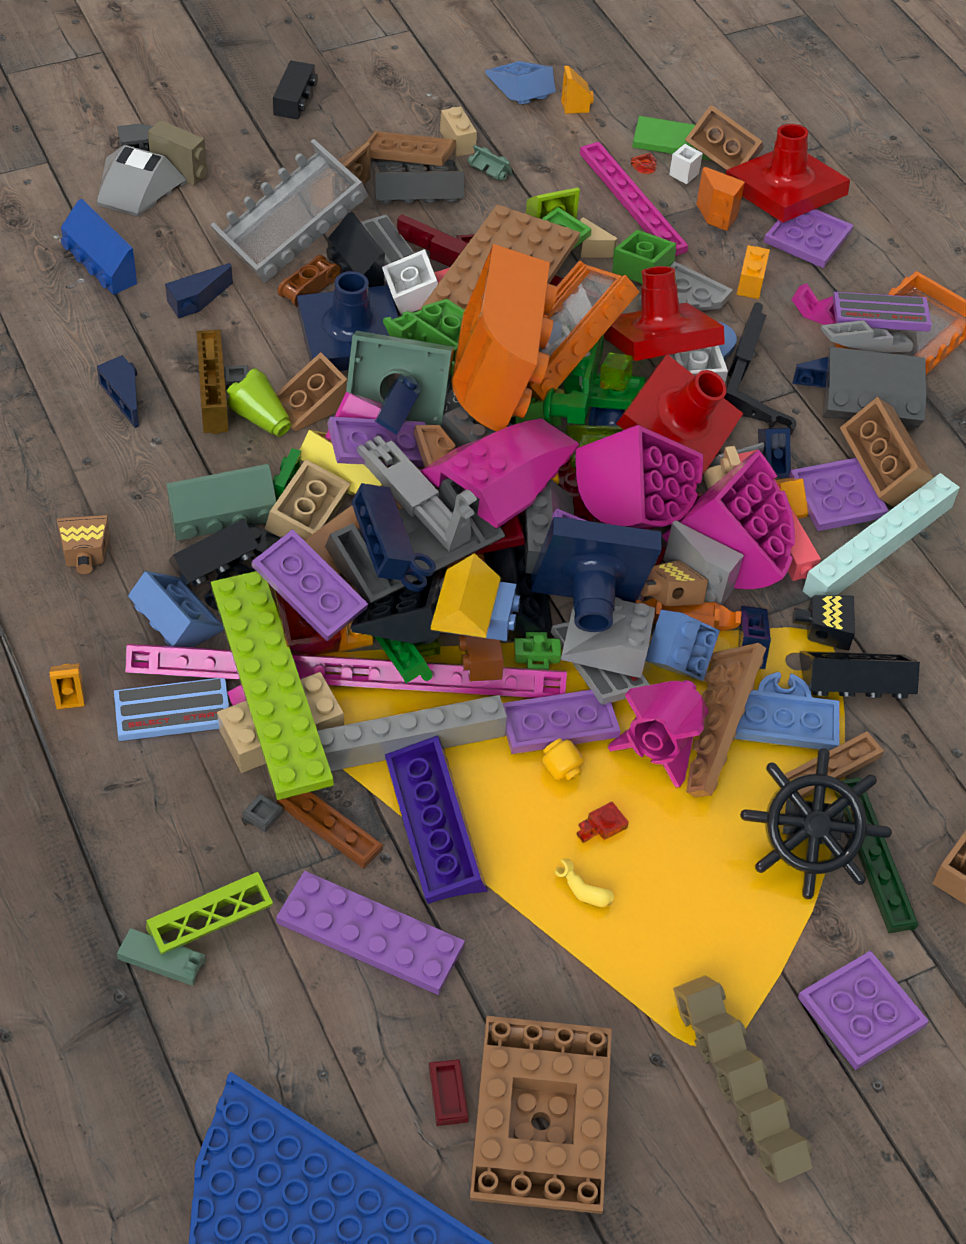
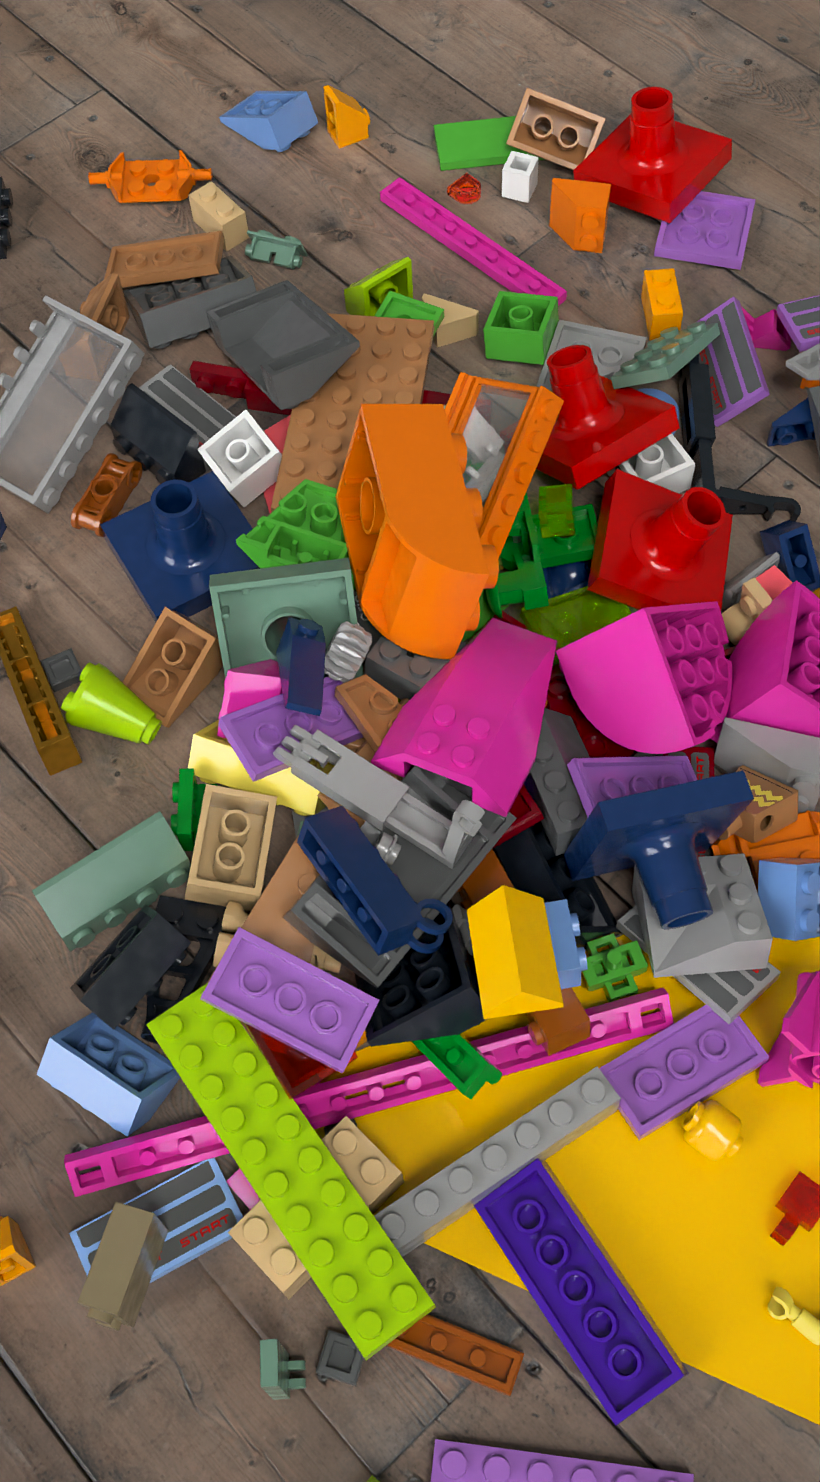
camera: 10 degrees left, 10 degrees up
(143, 707) = (123, 1266): none -> dark tan brick
(217, 794) = (276, 1370): none -> sand green hinge
(411, 525) = (388, 847): none -> light grey plate
(419, 96) = (131, 179): none -> orange plate
(431, 406) = (346, 652): none -> light grey gear
(466, 215) = (282, 342): none -> dark grey slope
(737, 298) = (665, 355): none -> sand green plate
(784, 319) = (733, 364): none -> tile

